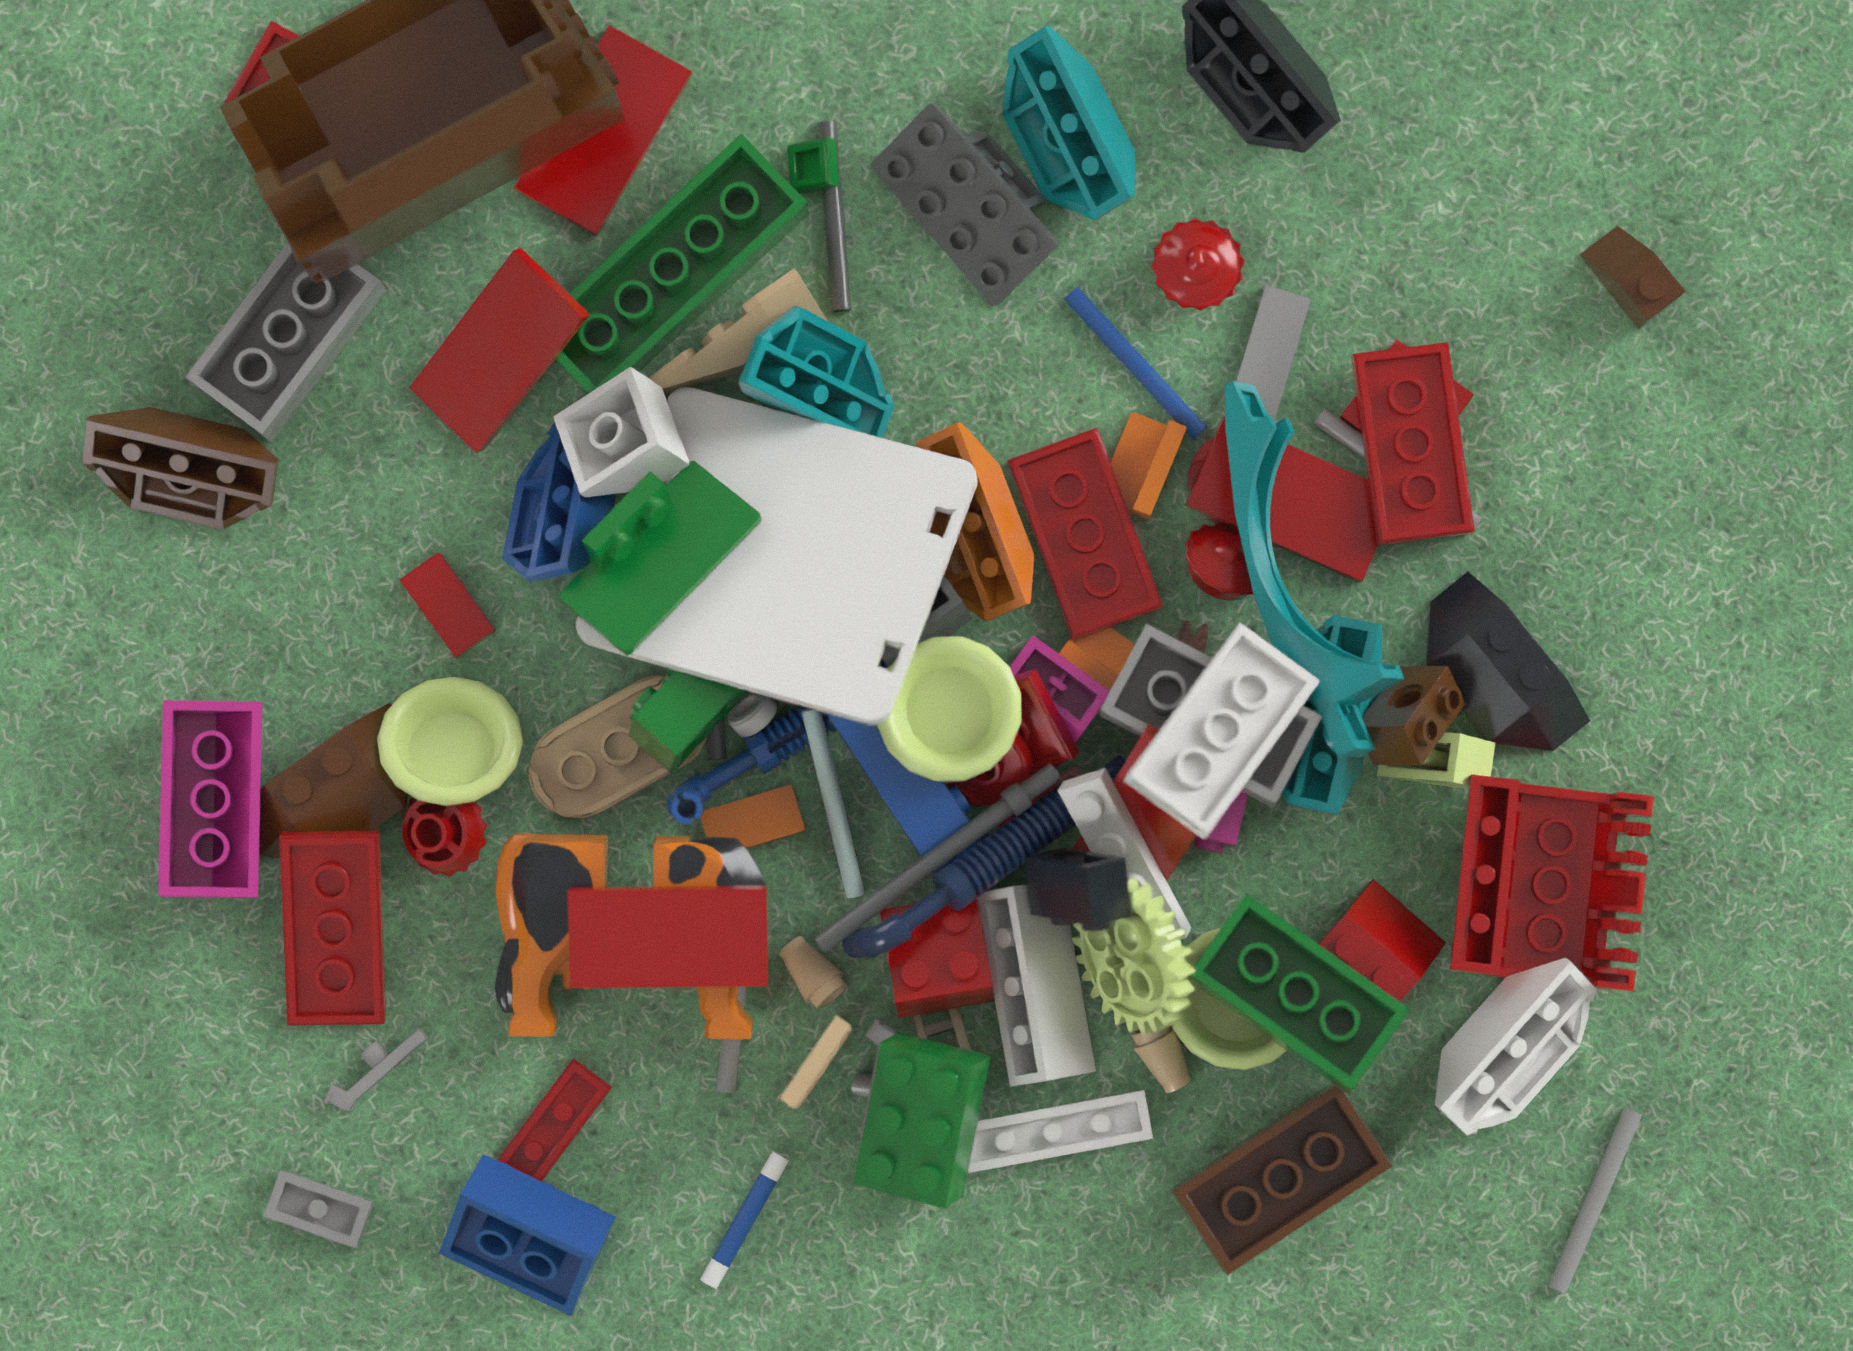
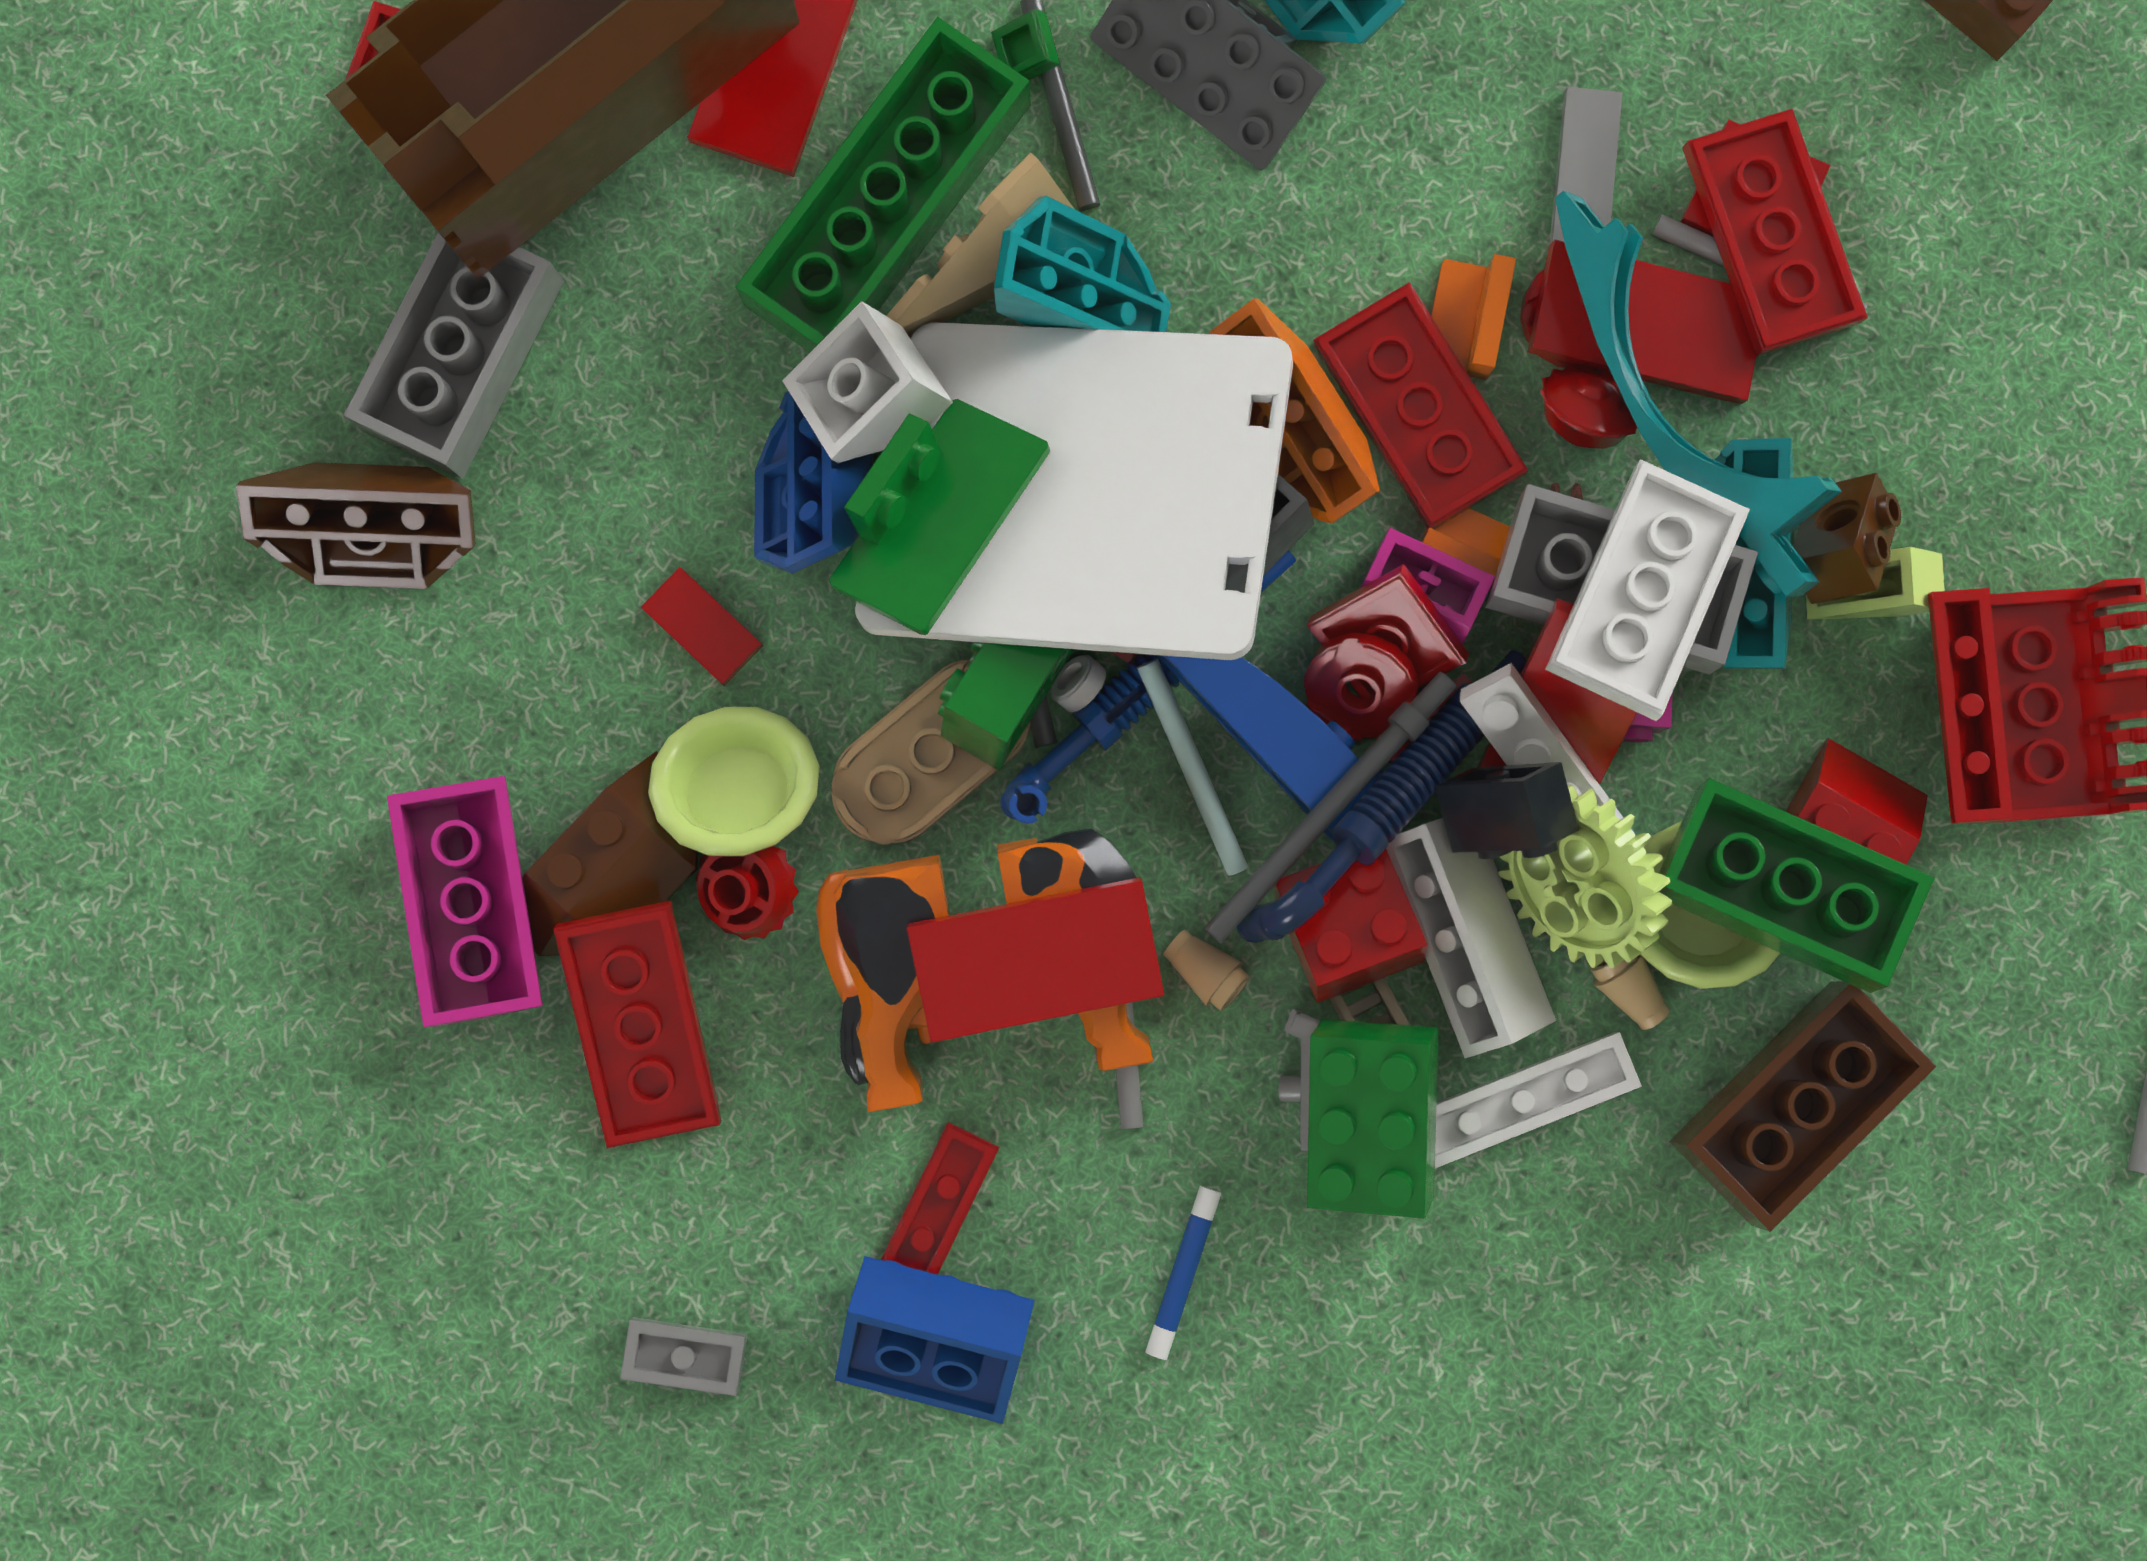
camera: 10 degrees left, 0 degrees up
(381, 1065) = (726, 1173): light grey piece -> none
(499, 350) = (705, 316): red tile -> none
(756, 818) = (1106, 802): orange tile -> none
(817, 1062) = (1239, 1074): tan tile -> none
(953, 710) = (1321, 630): yellowish green piece -> none
(1135, 362) = (1432, 201): blue bar -> none
(1197, 264) = (1488, 74): red piece -> none
(1503, 674) = (1949, 479): black wedge -> none
(1513, 1045) = (2036, 894): white wedge -> none

